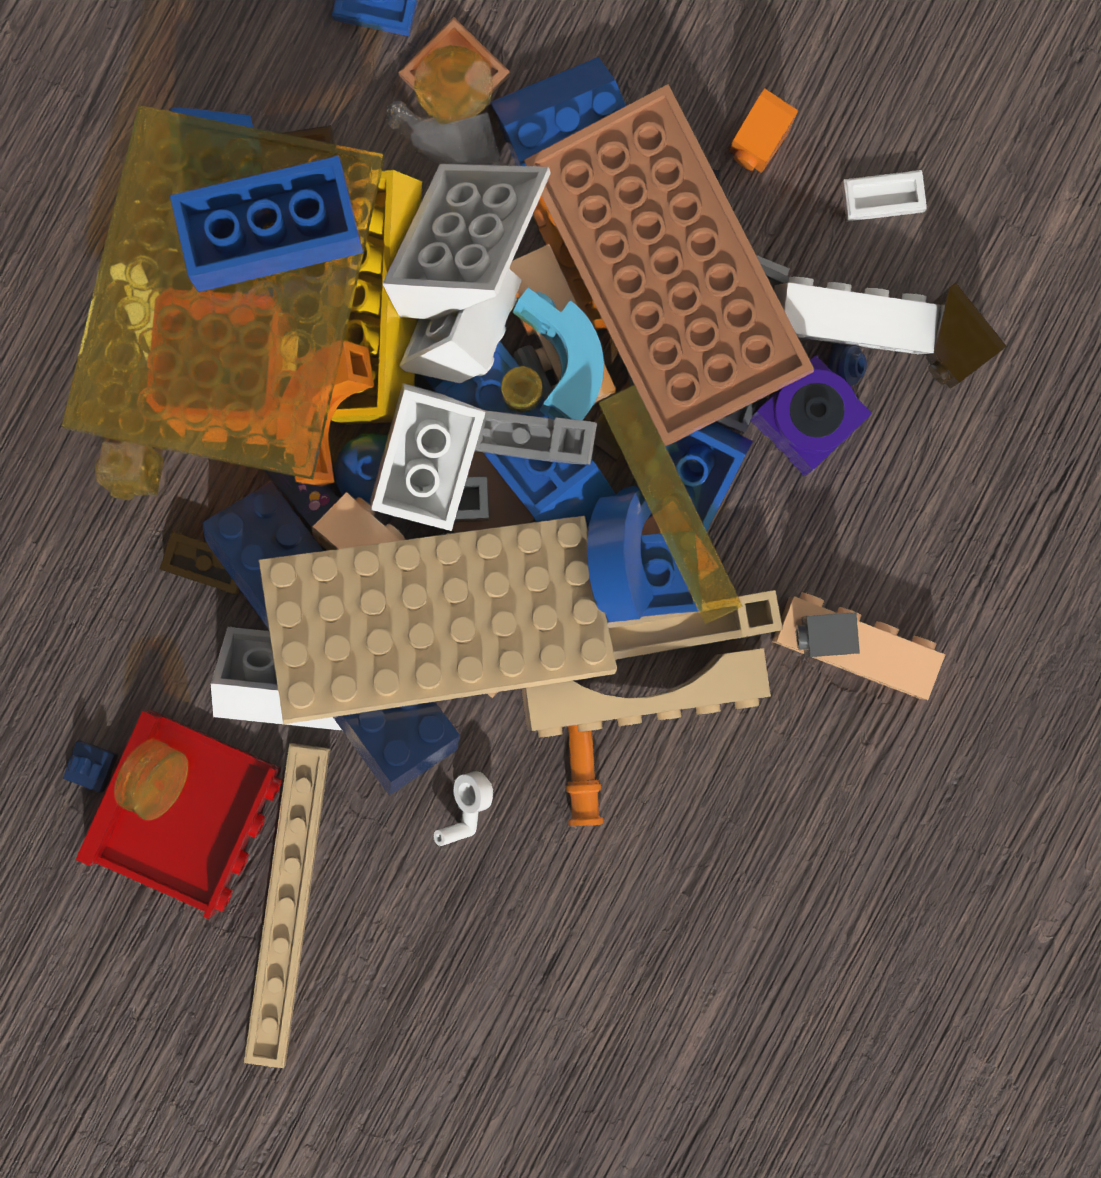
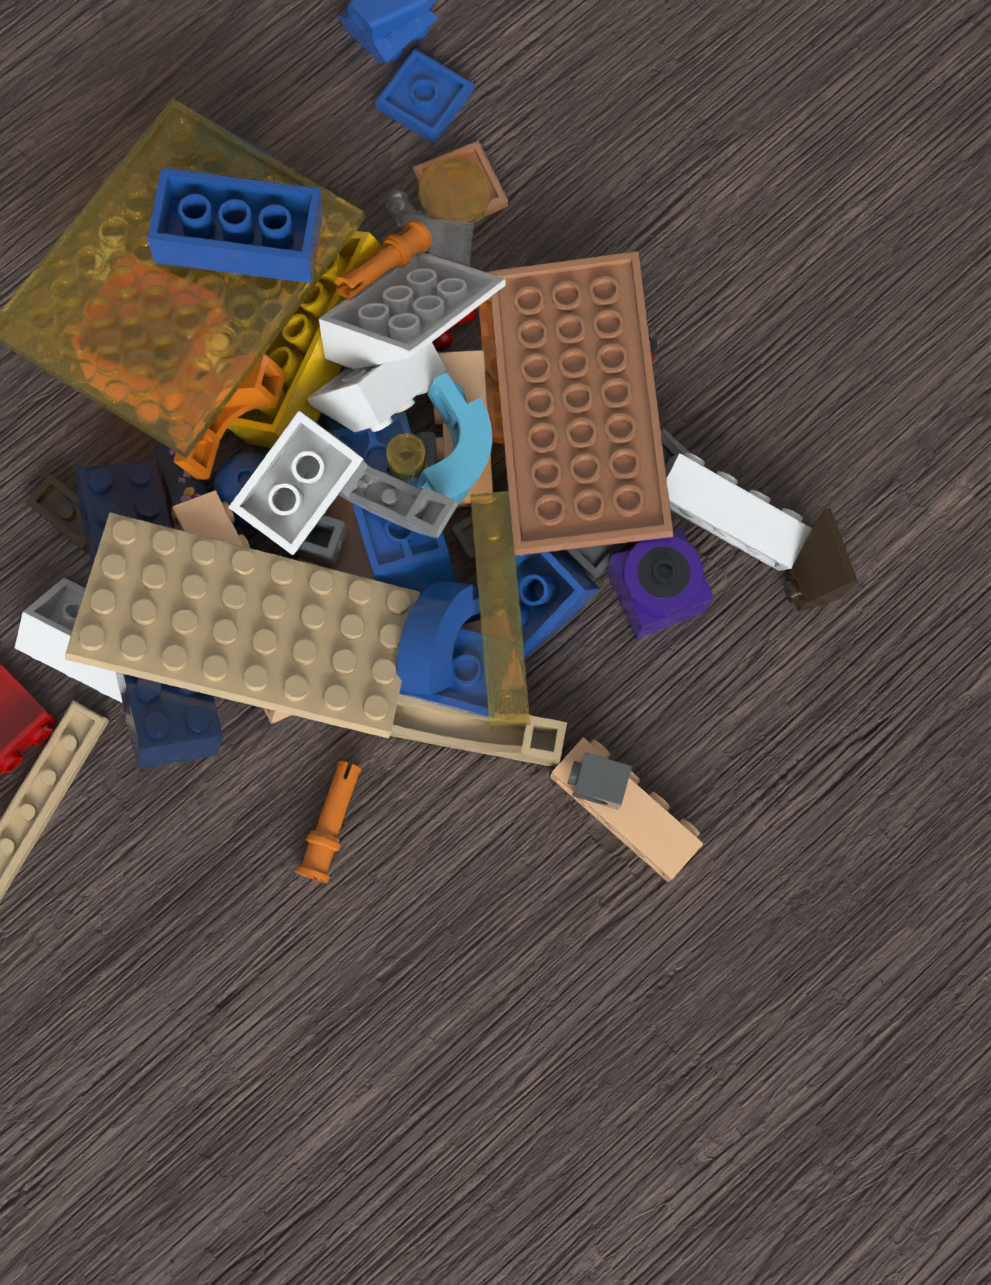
camera: 15 degrees right, 10 degrees down
(129, 469) = (36, 405): clear yellow brick -> none
(424, 178) = (394, 252): none -> orange pin
(472, 794) = (218, 811): white plate -> none
(556, 108) = (535, 242): blue slope -> none
(725, 679) = (333, 752): tan arch -> none
(762, 131) = (708, 325): orange slope -> none
(847, 362) = (712, 552): dark blue plate -> none
(884, 195) = (798, 422): white tile -> none

